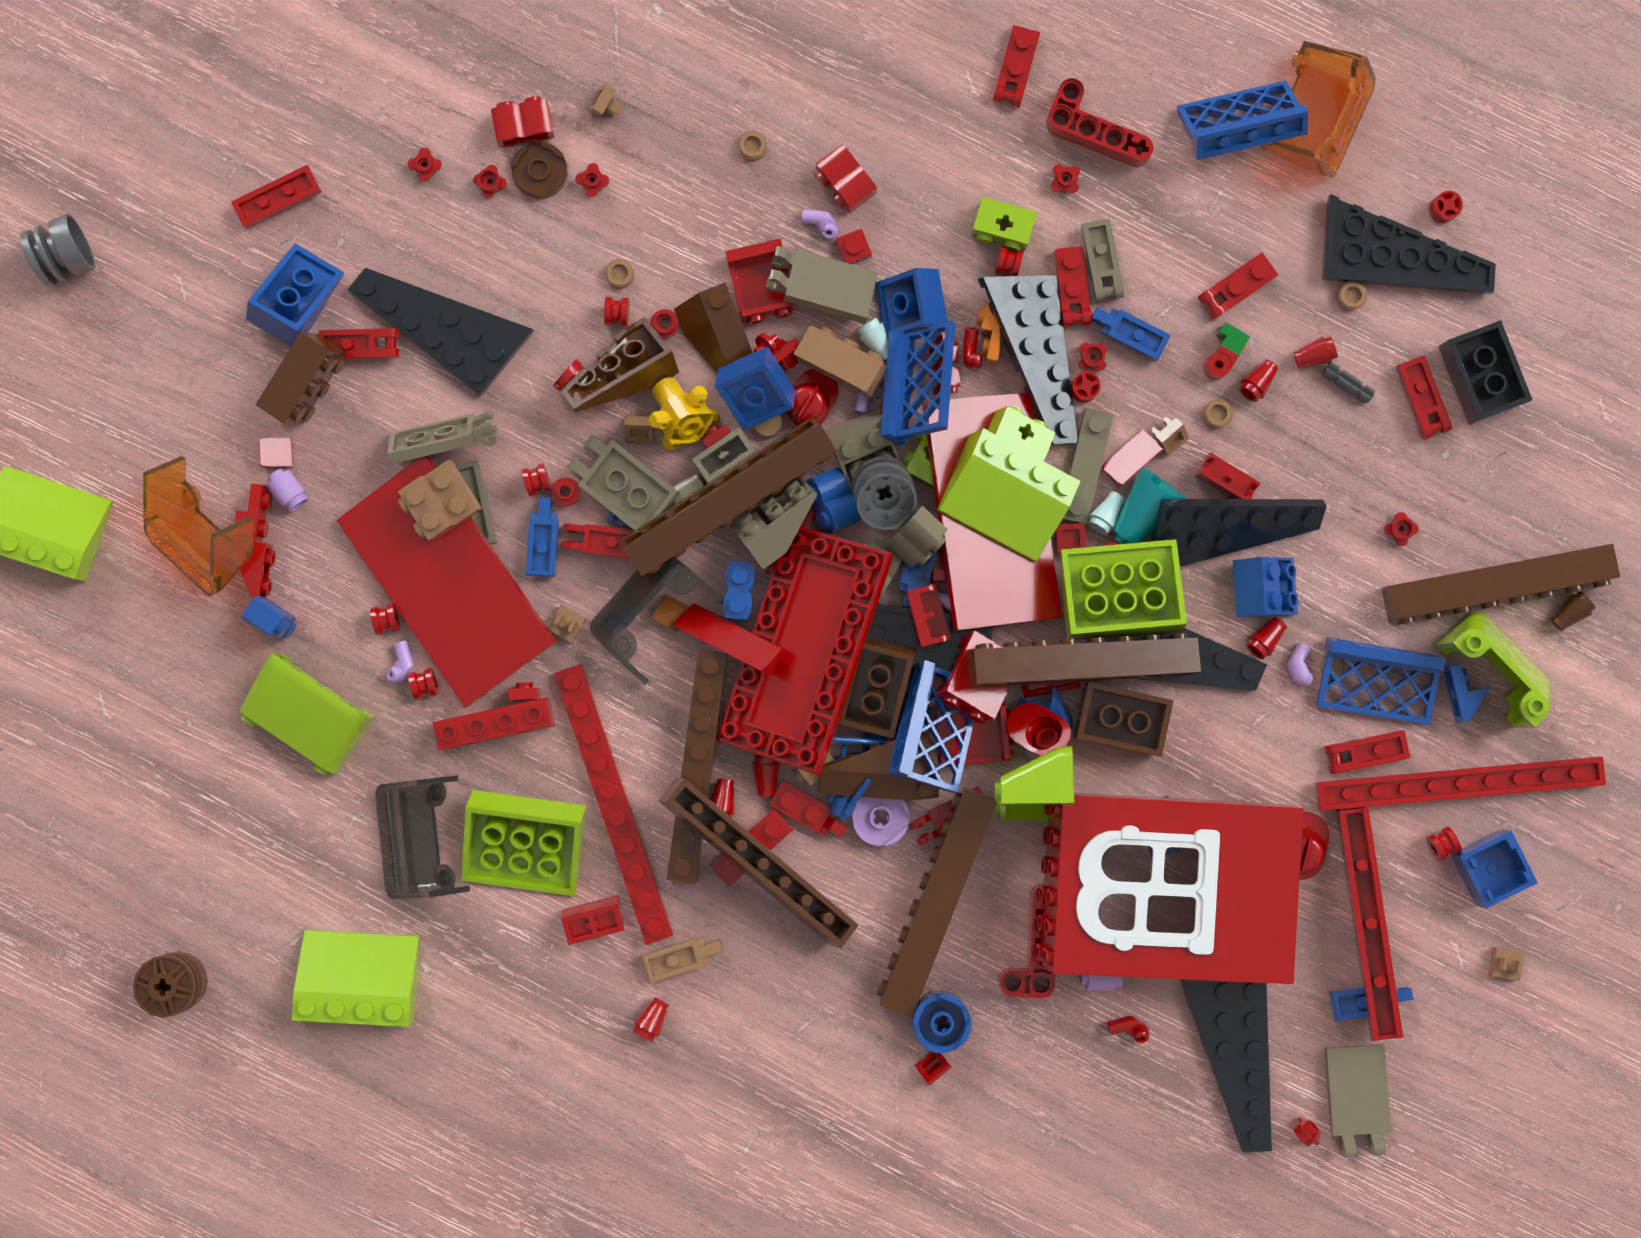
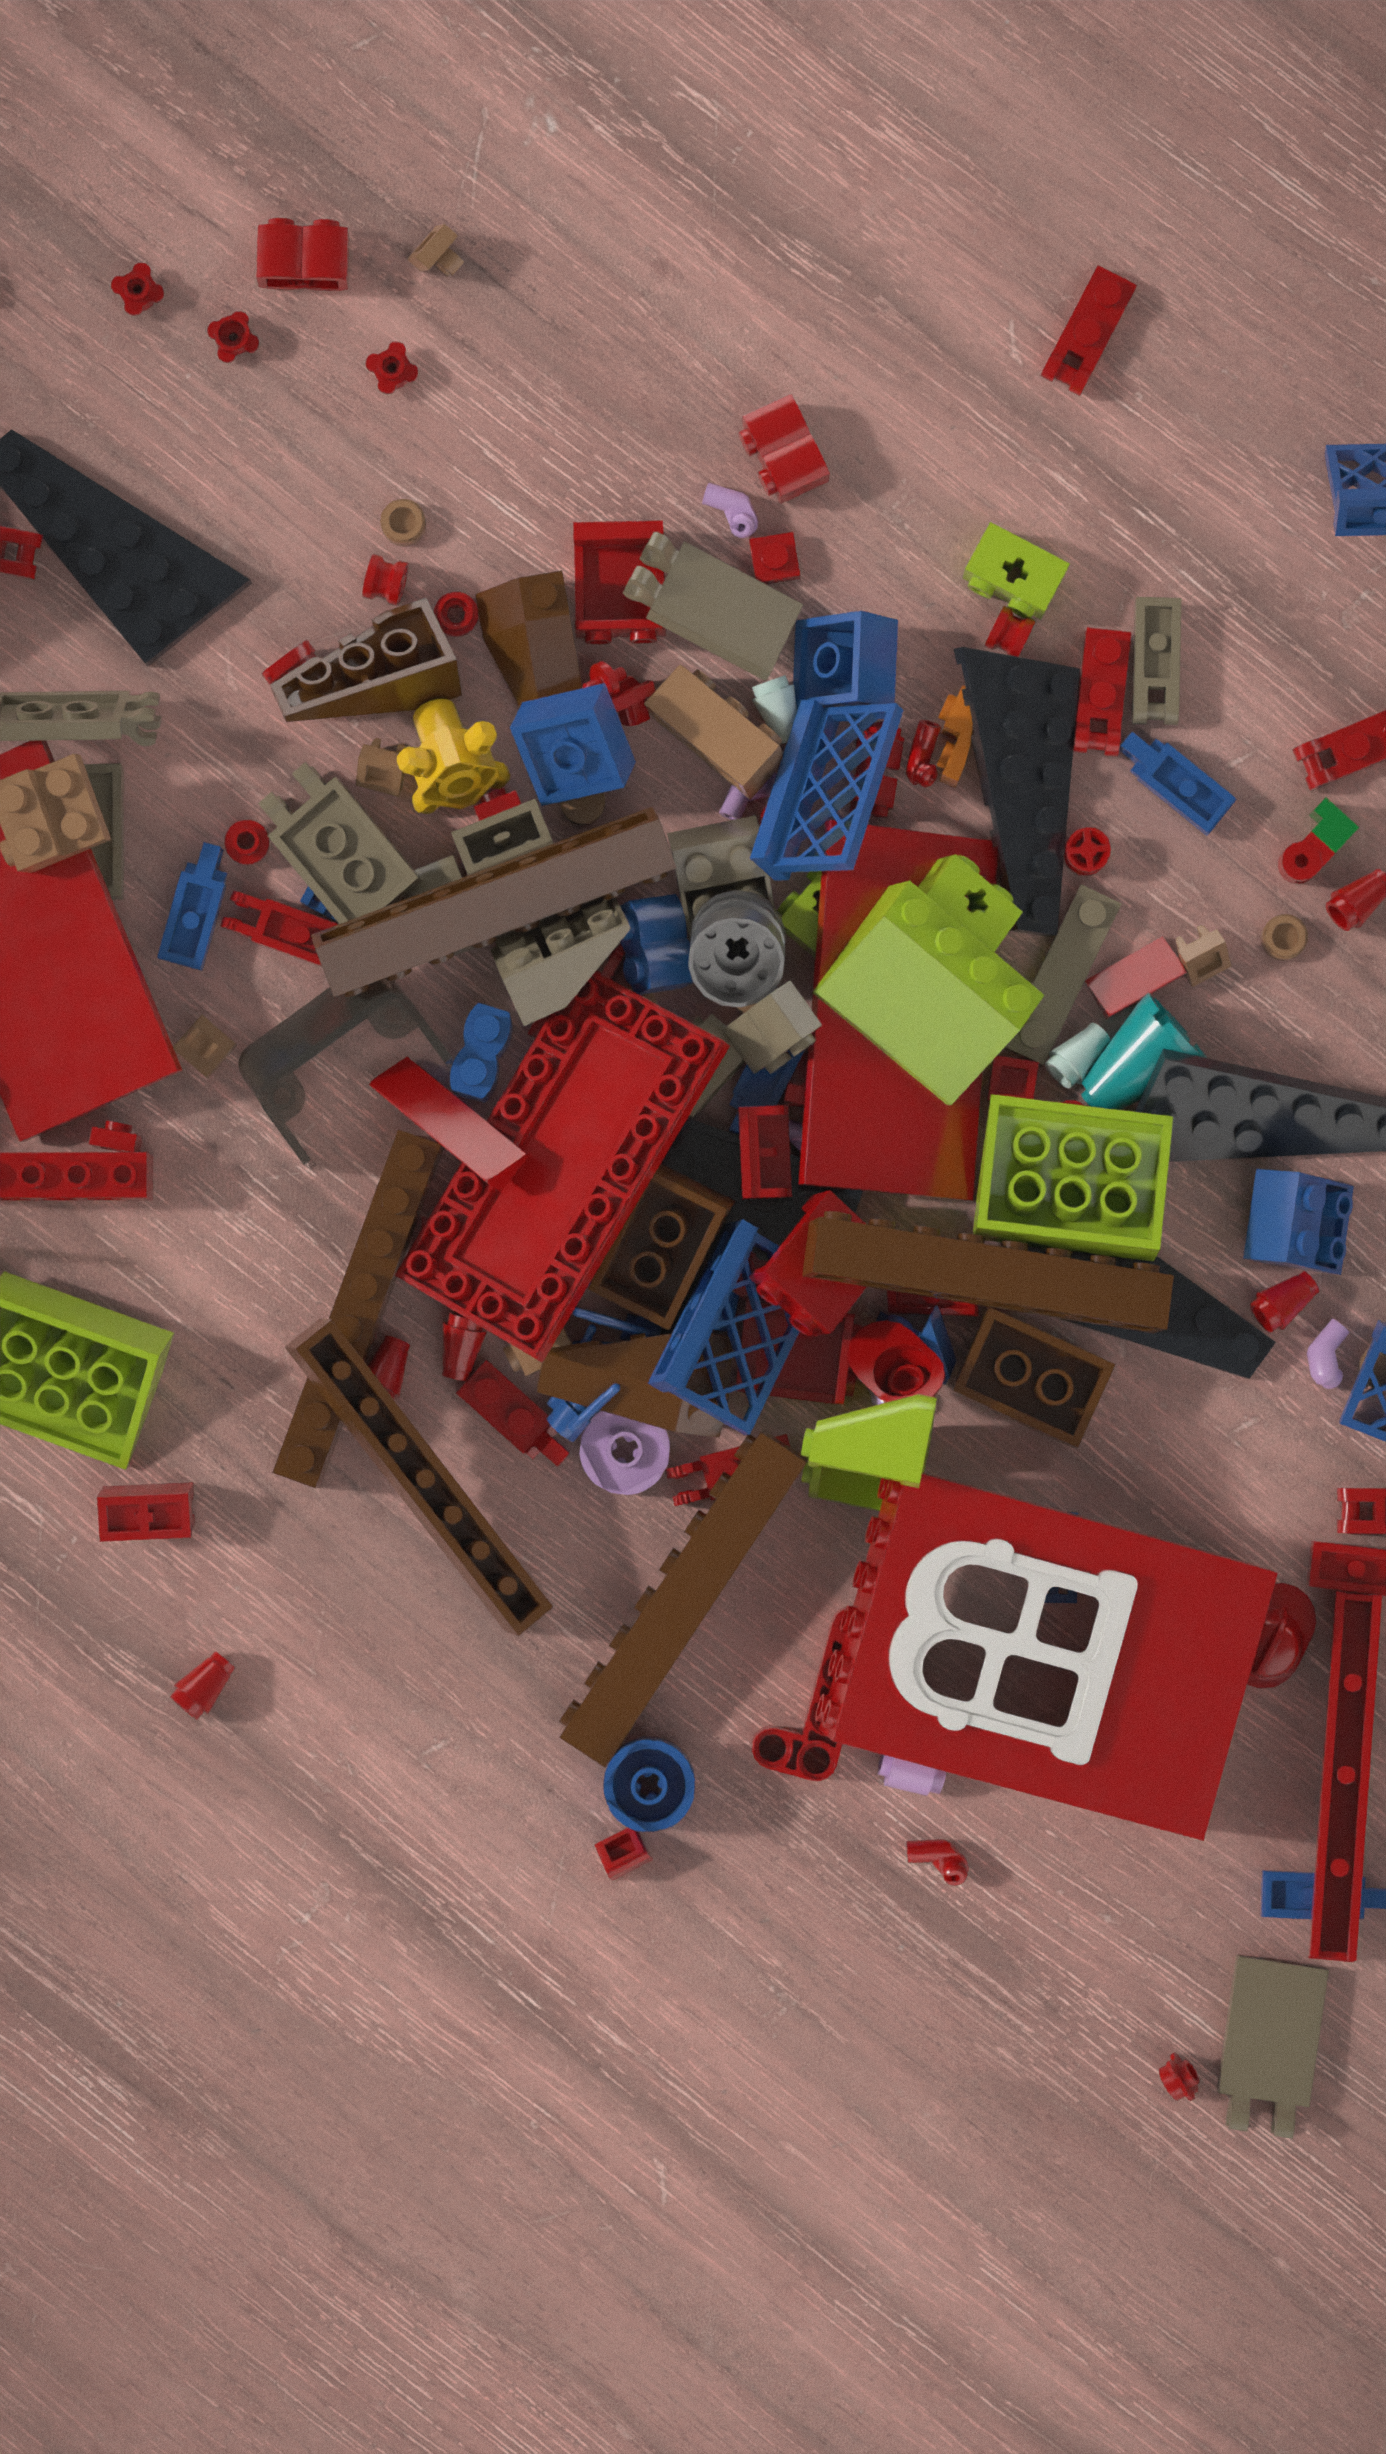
camera: 15 degrees right, 0 degrees up
(536, 479) = (205, 813): red wheel -> none
(539, 170) = (313, 335): reddish brown tile -> none
(613, 804) = (216, 1340): red plate -> none
(669, 612) = (366, 1062): dark orange slope -> none
(679, 958) = (266, 1600): medium nougat hinge -> none
(752, 145) = (652, 367): medium nougat tile -> none
(768, 831) = (446, 1434): red plate -> none
(813, 397) = (661, 778): red piece -> none
(1065, 186) = (1129, 534): red plate -> none
(1097, 350) = (1120, 800): red plate -> none
(1101, 129) = (1199, 454): red beam -> none
(1226, 478) = (1276, 1040): red hinge -> none
(1235, 1039) = (1100, 1910): black wing -> none

